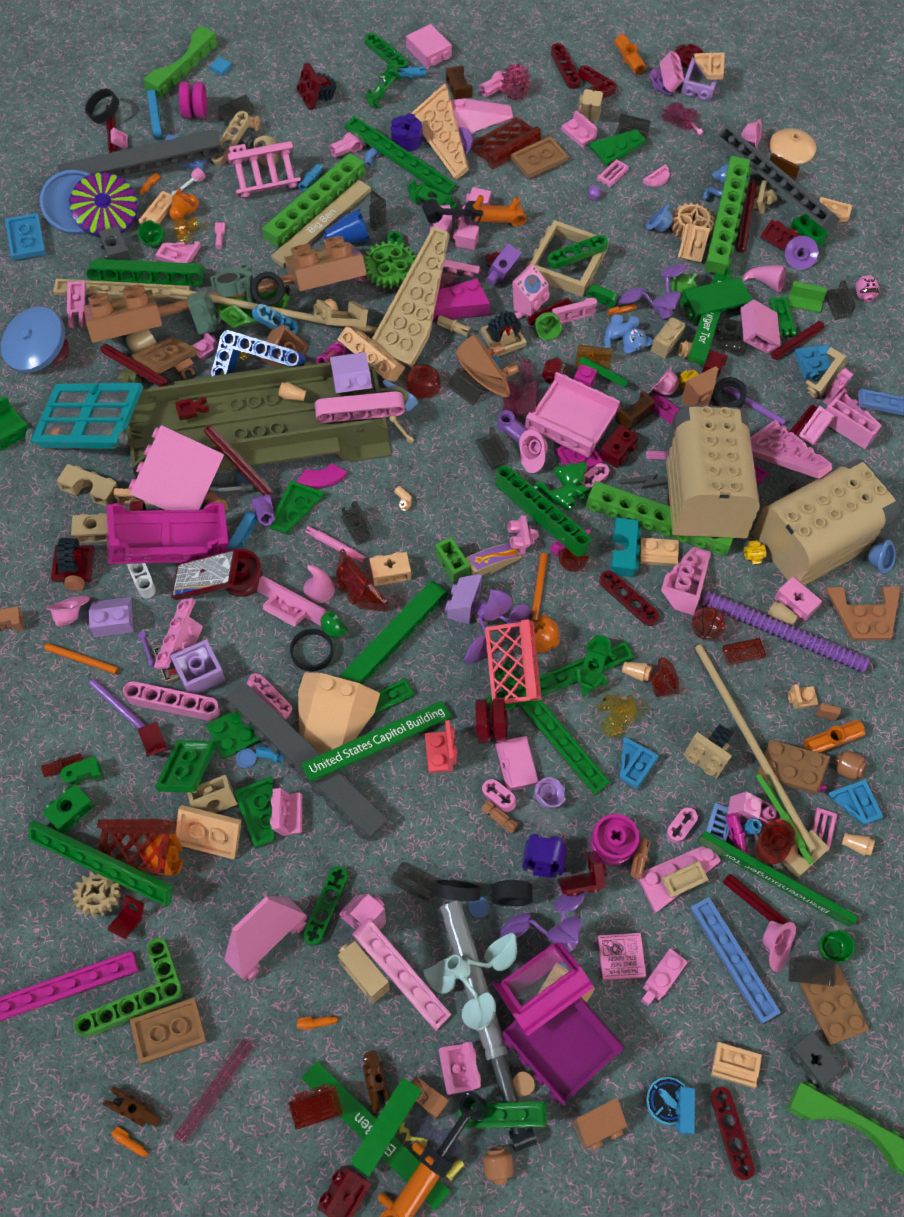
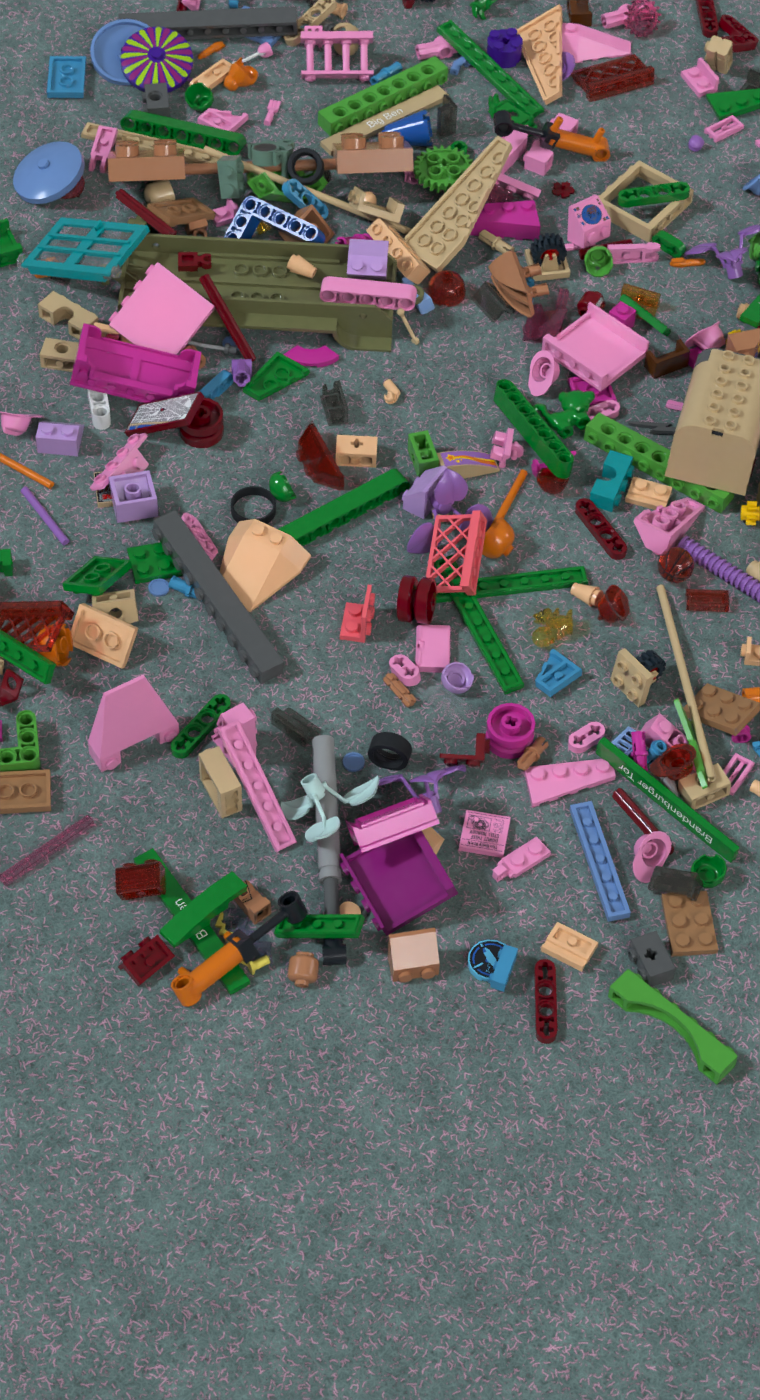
camera: 15 degrees right, 10 degrees down
(72, 560) = (34, 379): plate -> none
(74, 583) = (30, 399): nougat tile -> none
(142, 636) = (85, 460): medium lavender hinge -> none
(152, 739) = (70, 548): dark red bracket -> none
(164, 695) = (99, 520): bright pink beam -> none
(183, 227) = (234, 96): clear yellow piece -> none
(257, 810) = (157, 631): green wing -> none
(286, 812) = (184, 637): bright pink bracket -> none
(287, 604) = (240, 460): bright pink bracket -> none
(310, 1023) = (156, 818): orange piece -> none
(320, 586) = (279, 452): bright pink hat -> none
(335, 544) = (305, 418): bright pink piece -> none
(374, 1070) = (204, 872): reddish brown hinge -> none
(375, 742) = (291, 594): green tile -> none
(393, 695) = (323, 564): green tile -> none
(457, 890) = (343, 737): black tyre -> none
(459, 1068) = (290, 878): bright pink bracket -> none
(493, 449) = (500, 364): clear smoke panel -> none
(503, 264) = (568, 192): medium lavender torso -> none
(512, 427) = (525, 345): medium lavender piece -> none
(539, 157) = (645, 98): medium nougat plate -> none
(544, 856) = (433, 727): dark purple brick -> none
(598, 649) = (549, 564): green piece -> none
(618, 446) = (637, 388): dark red brick -> none
(633, 338) = (687, 284): medium blue animal -> none
(668, 337) = (727, 296): tan brick -> none
(684, 879) = (571, 779): tan tile -> none

